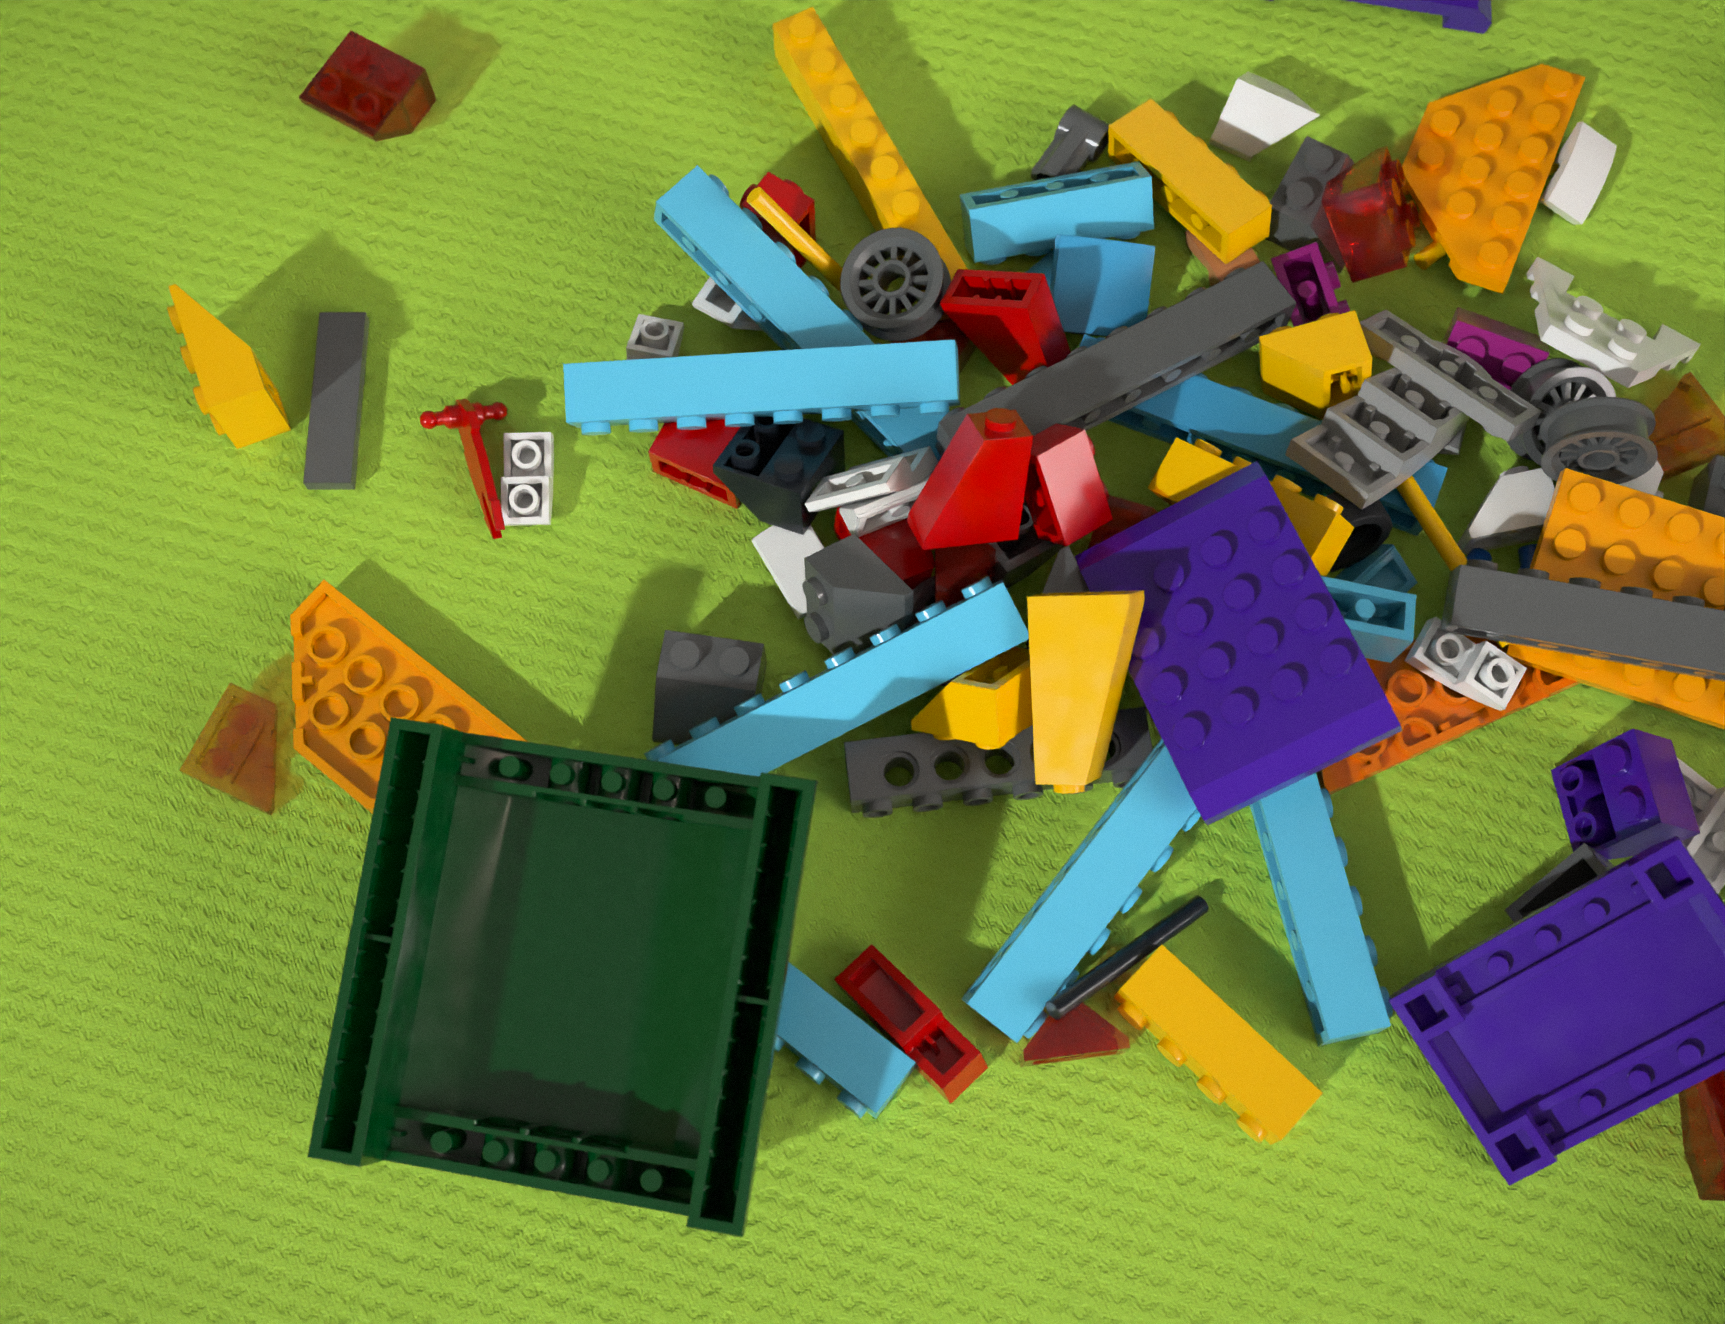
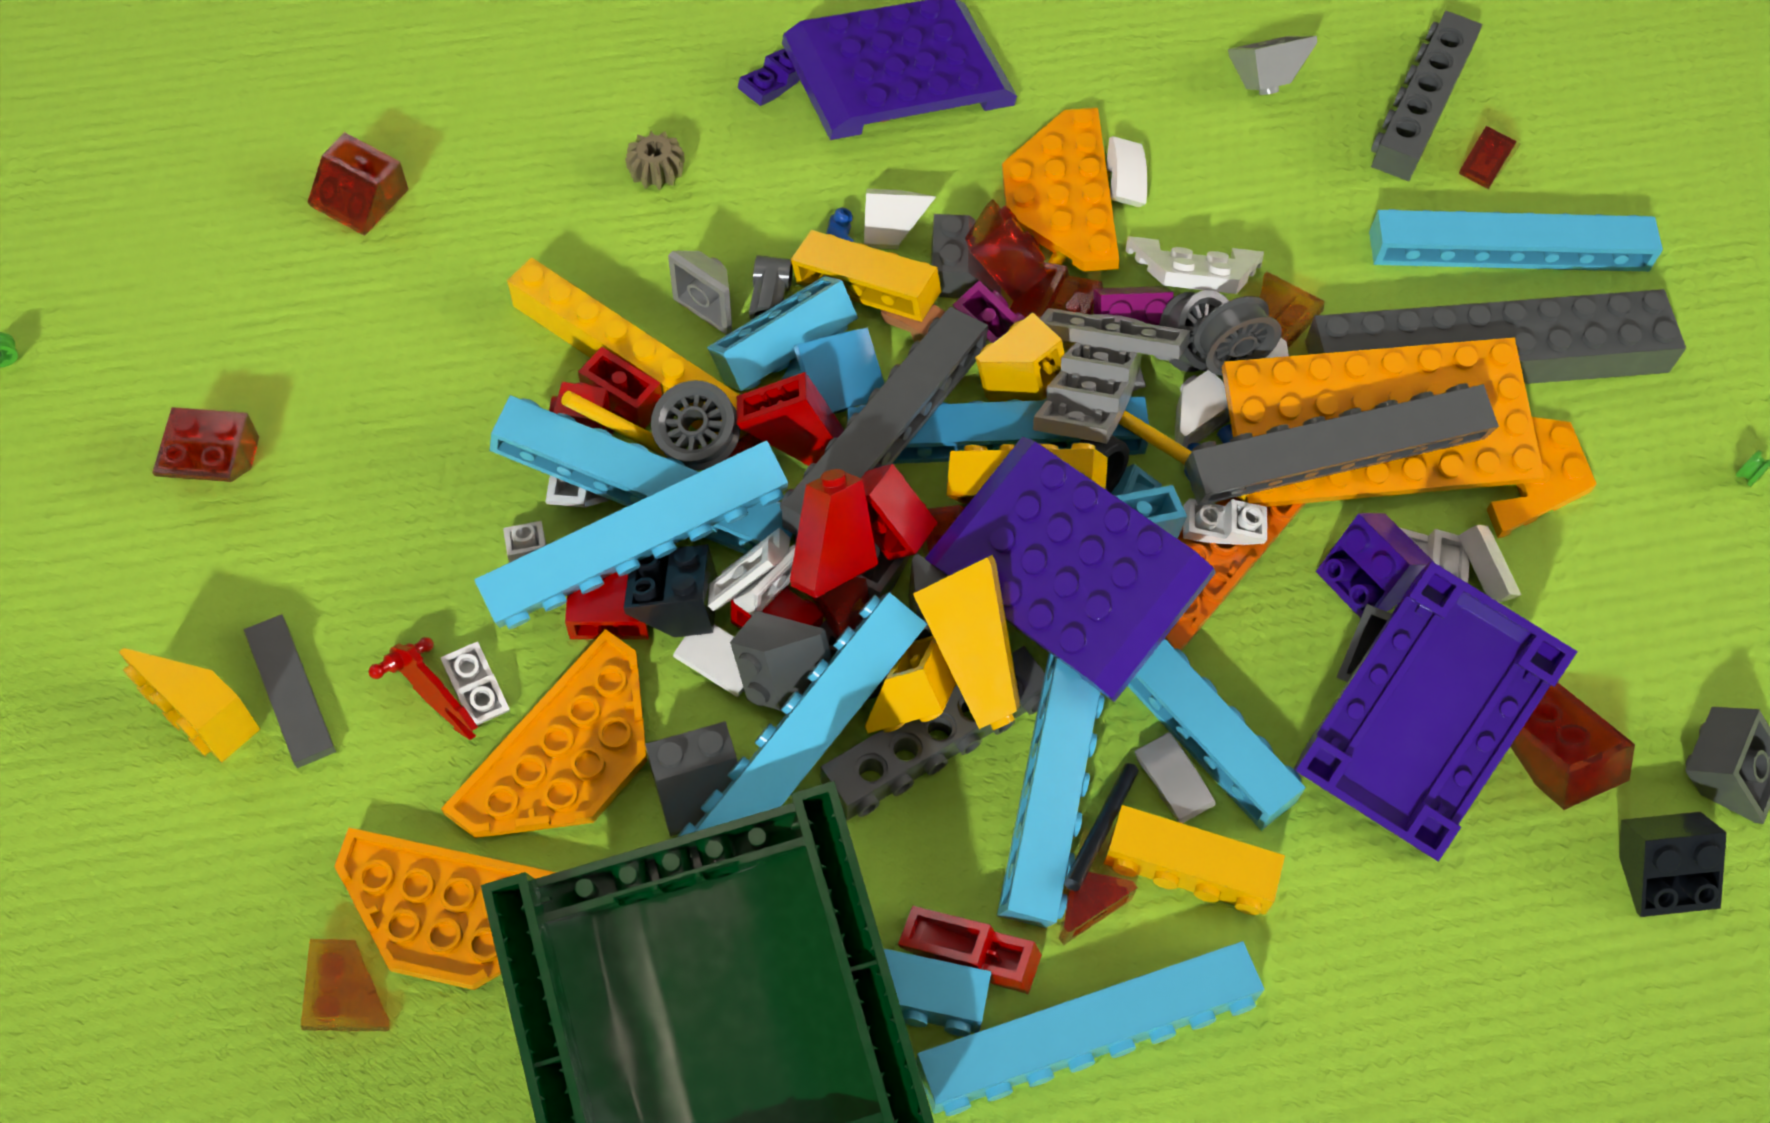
camera: 30 degrees left, 10 degrees down
(586, 598) = (565, 753): none -> light orange plate
(841, 203) = (629, 390): none -> red brick
(992, 117) = (701, 287): none -> light grey slope
(1000, 1176) = (1087, 1028): none -> medium azure brick
(1192, 106) = (840, 225): none -> blue arm
(1245, 940) = (1175, 778): none -> light grey slope
(1411, 294) = (1058, 292): none -> clear red slope

